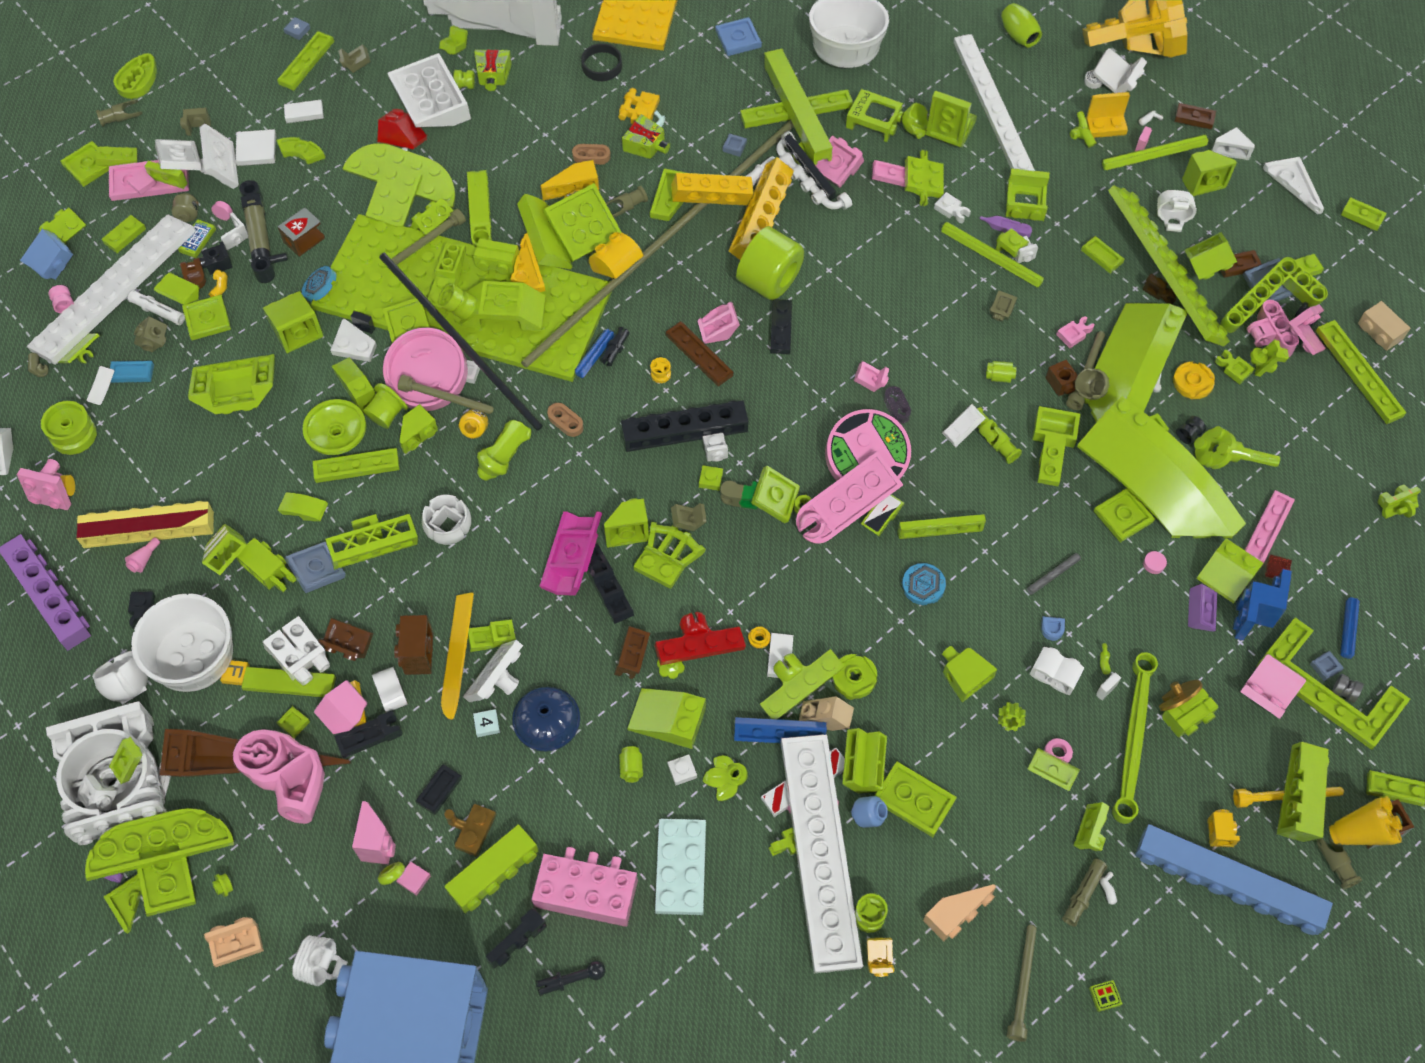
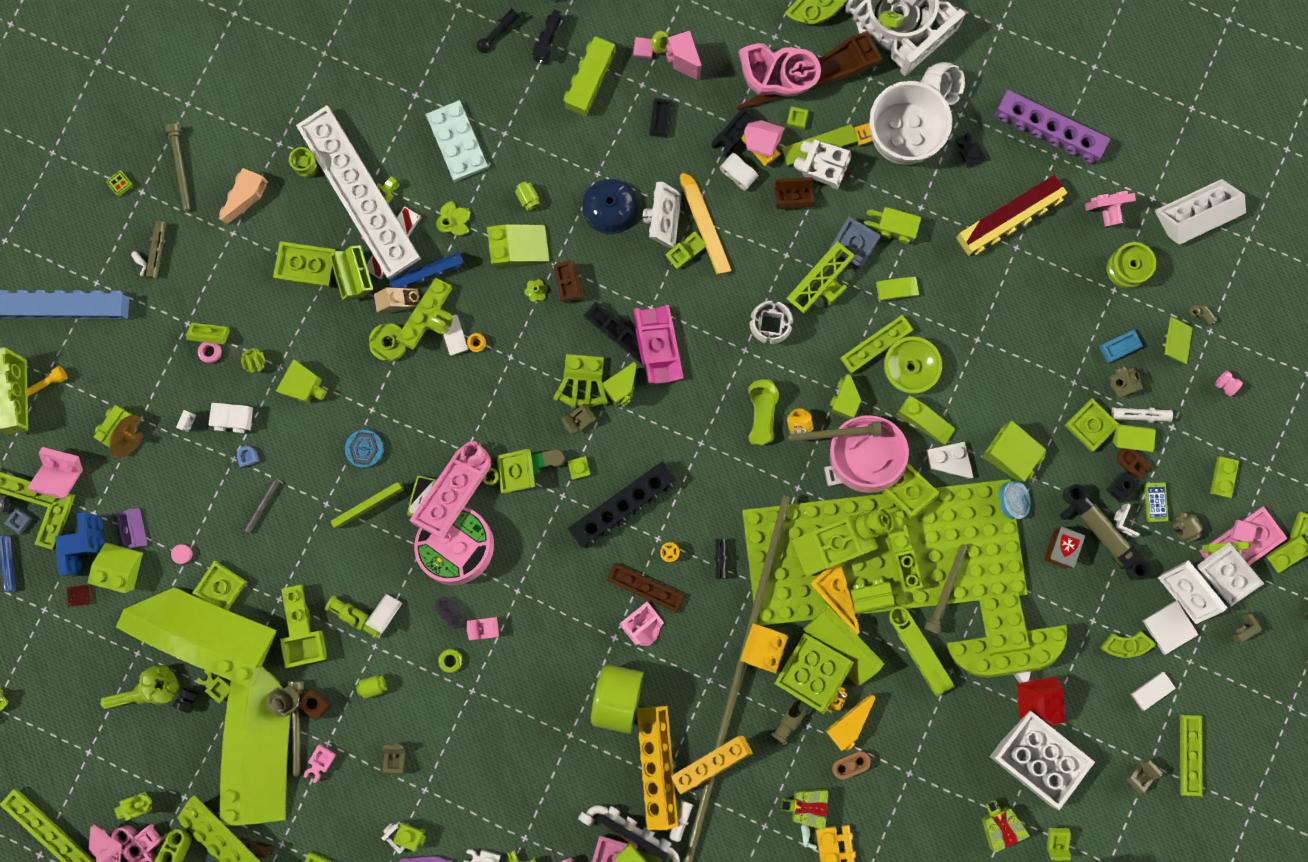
camera: 160 degrees right, 20 degrees up
(47, 255) = (1270, 416): medium blue torso -> none
(64, 225) = (1282, 454): lime bracket -> none
(69, 484) = (1098, 219): yellow tile -> none
(100, 385) = (1136, 320): white sticker -> none
(111, 289) = (1192, 416): white plate -> none
(137, 561) = (997, 187): bright pink cone -> none
(221, 286) = (1101, 462): yellow arm -> none
(222, 210) = (1152, 540): bright pink tile -> none
(226, 546) = (933, 218): lime torso -> none
(232, 384) = (1026, 370): lime slope -> none
(297, 28) = (1225, 791): sand blue tile -> none
(363, 322) = (952, 481): black tile -> none
(384, 406) = (883, 402): lime piece -> none
(414, 644) = (736, 207): reddish brown brick -> none
(434, 216) = (957, 618): lime bracket -> none
(461, 342) = (855, 492): black piece -> none
(464, 79) = (1021, 800): lime wheel -> none
(473, 829) = (619, 101): pearl gold plate -> none
(486, 723) = (649, 180): light aqua tile -> none
(566, 421) = (727, 464): medium nougat plate -> none
(585, 888) = (515, 91): bright pink piece -> none
(594, 353) = (736, 546): blue axle -> none
(663, 205) = (756, 765): lime wing -> none
(682, 770) = (488, 211): white plate -> none
(698, 641) = (520, 314): red plate -> none
(715, 447) = (587, 497): white bracket -> none
(734, 145) = (721, 843): sand blue tile -> none
(781, 326) = (585, 649): black plate -> none
(869, 811) = (333, 236): medium blue head -> none
(879, 956) = (286, 136): bracket -> none
(915, 359) = (442, 657): none -> lime piece
(992, 254) = (425, 820): lime axle -> none
(1089, 831) = (164, 296): lime hinge -> none
(1104, 660) = (197, 446): lime piece -> none
(1135, 738) = (153, 390): lime piece -> none
(1194, 380) = (199, 760): yellow tile -> none
(1222, 829) = (66, 341): yellow brick -> none
(1235, 368) = (162, 788): lime plate -> none
(1269, 525) = (96, 631): bright pink tile -> none

